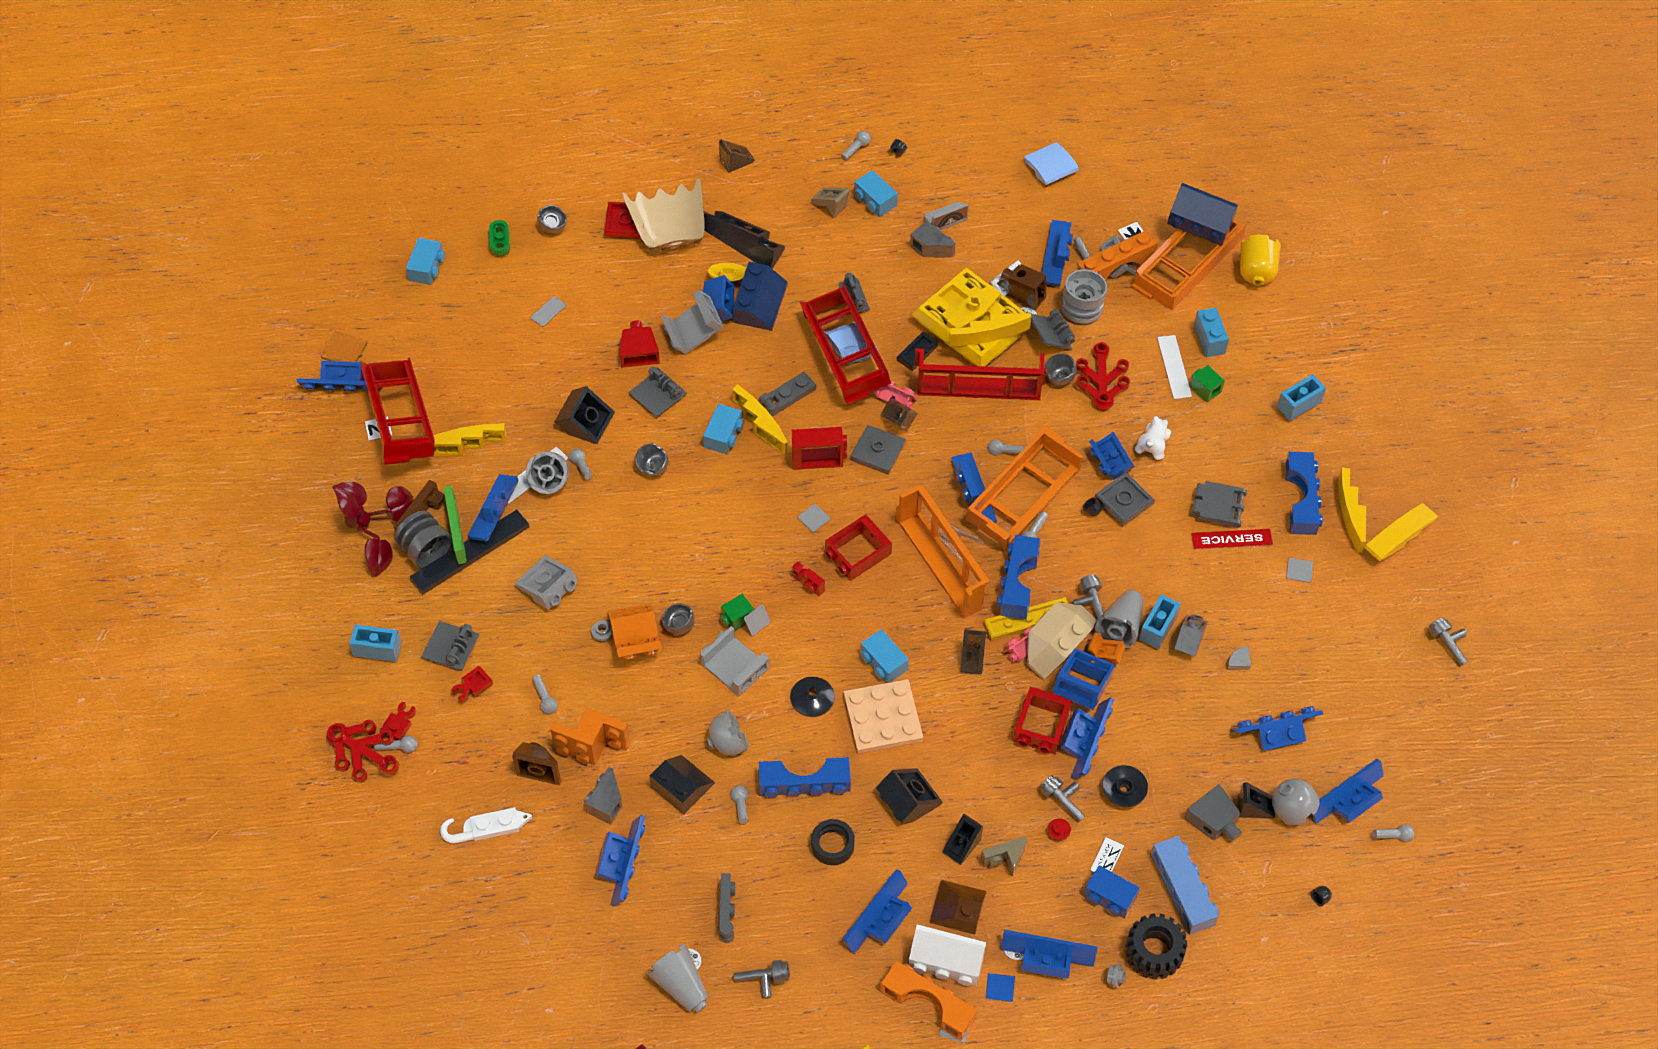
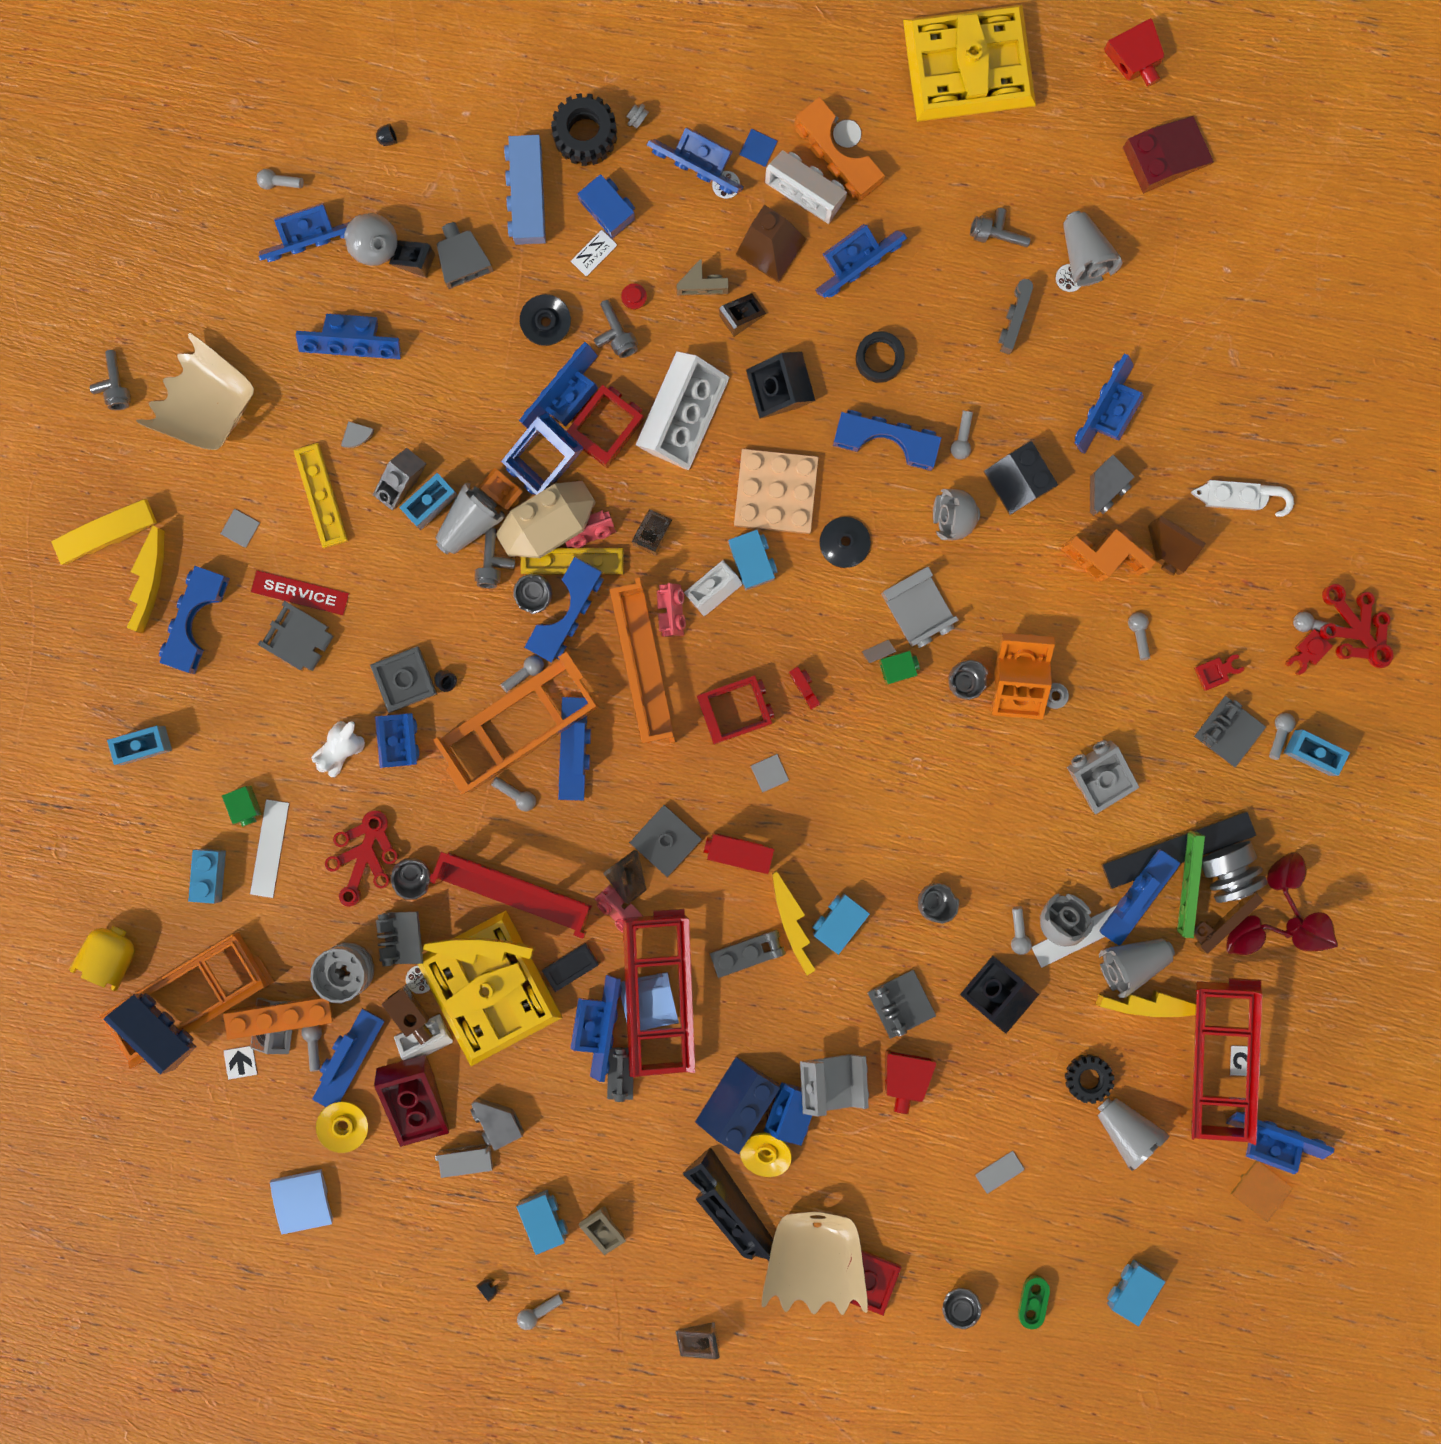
camera: 160 degrees left, 30 degrees up
(406, 665) = (1284, 724): none -> light grey bar
(456, 352) = (1130, 1132): none -> light grey cone
(483, 461) = (1134, 964): none -> light grey cone
(500, 391) = (1100, 1090): none -> black tyre
(884, 316) = (595, 1026): none -> blue bracket
(909, 630) = (713, 588): none -> white slope
(926, 1023) = (847, 133): none -> white sticker
(931, 598) = (672, 598): none -> coral hinge
(946, 541) = (620, 695): clear plant -> none
(983, 750) = (682, 410): none -> white slope
(1000, 240) = (411, 1100): none -> dark red slope
(1042, 210) = (337, 1138): none -> yellow dish
(1049, 582) = (532, 593): none -> flat silver hair
(1247, 609) = (320, 495): none -> yellow tile
(1374, 643) = (201, 399): none -> tan piece

